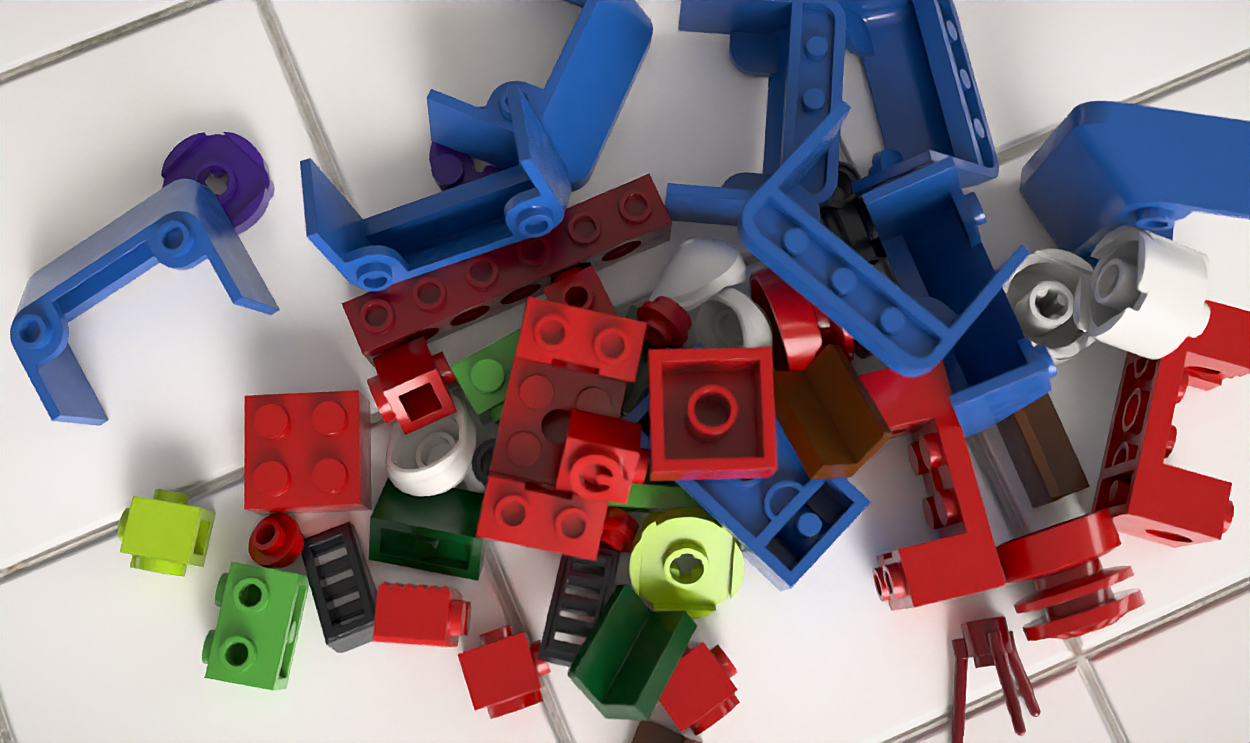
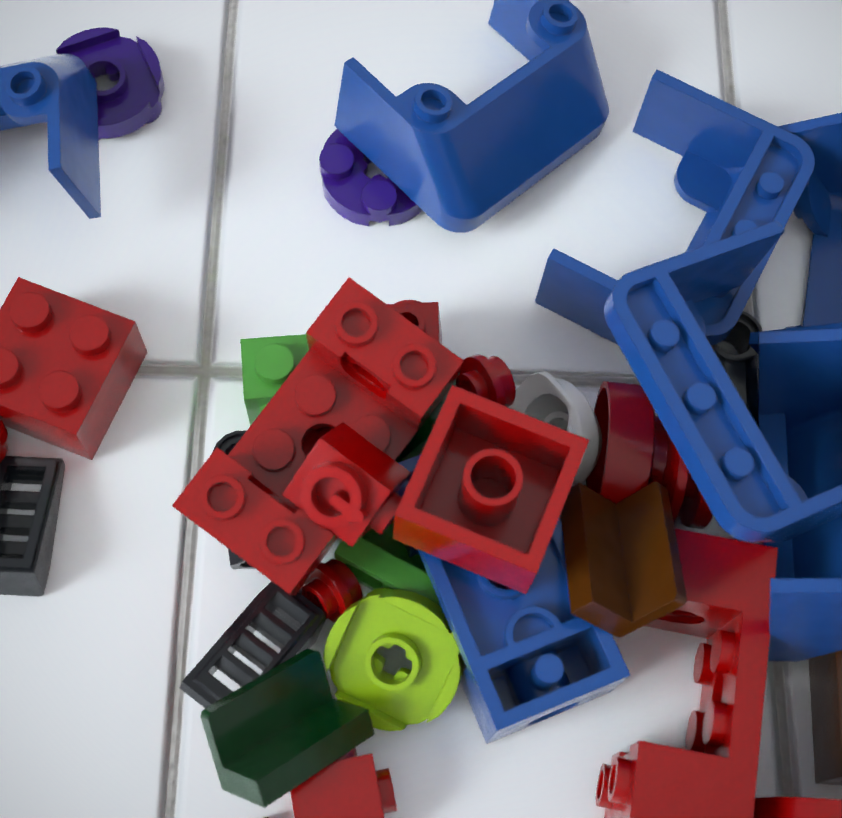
camera: 20 degrees right, 10 degrees down
(412, 385) = (193, 346): red brick -> none
(420, 615) = (77, 579): red brick -> none
(428, 531) = (128, 499): dark green panel -> none
(434, 455) = (182, 418): white hat -> none
(446, 225) = (301, 198): blue windscreen -> none
(474, 289) = (298, 275): dark red brick -> none
(504, 672) = (137, 689): red brick -> none
(700, 272) = (553, 356): white hat -> none

